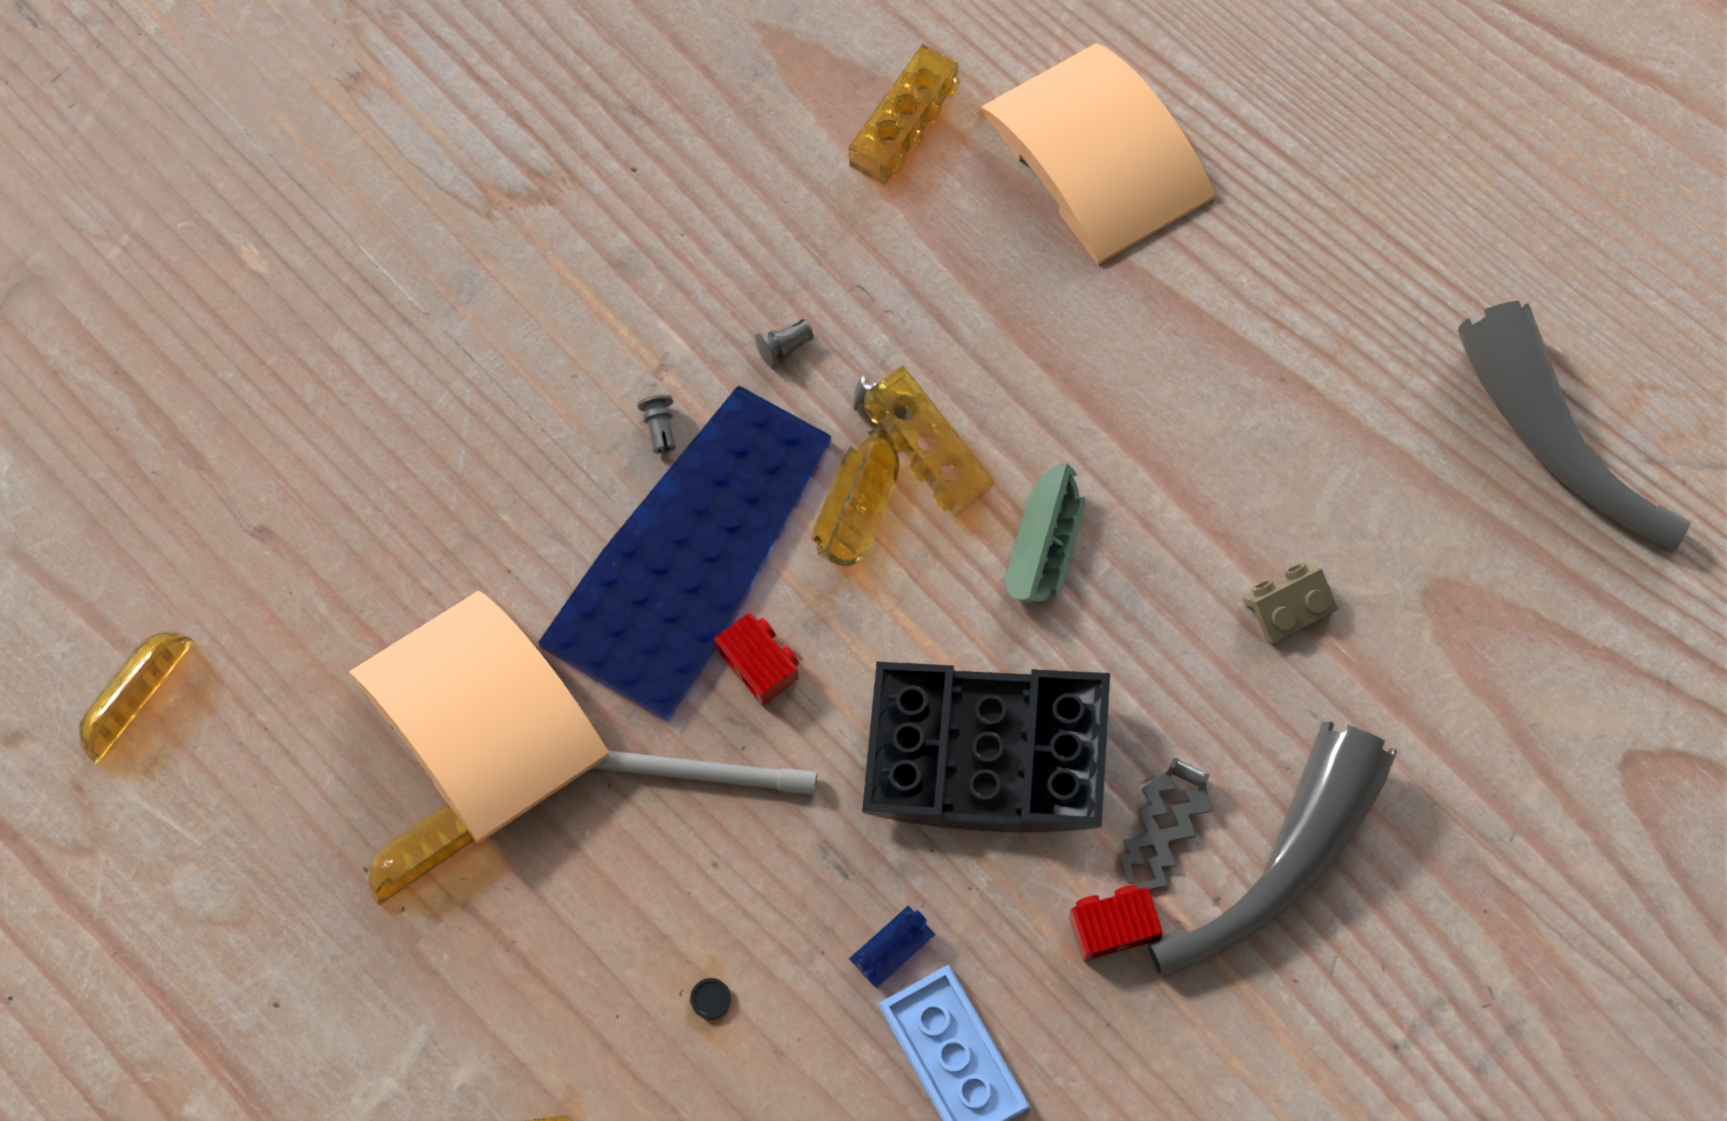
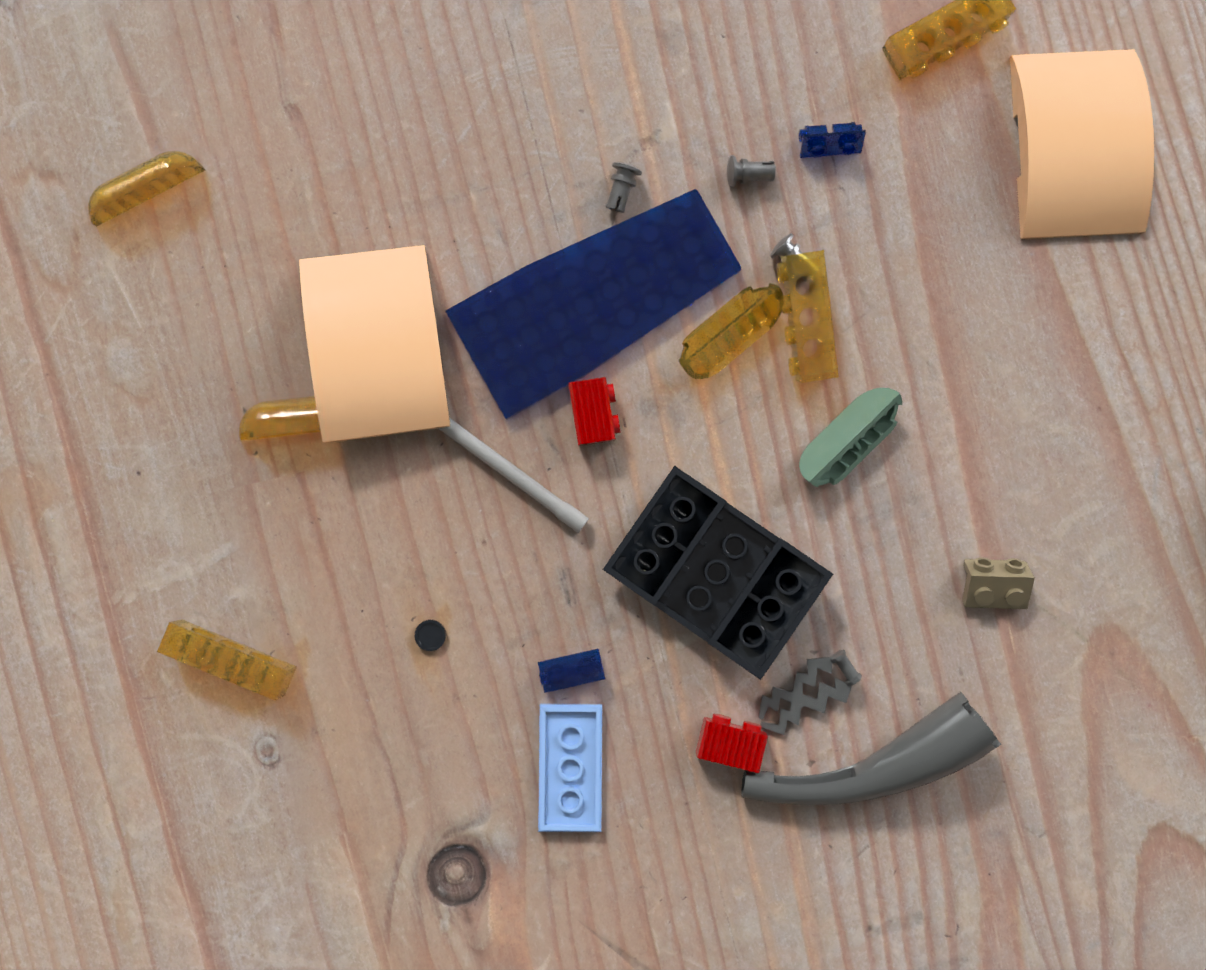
camera: 25 degrees right, 20 degrees up
(856, 269) = (844, 140): none -> clear blue hinge

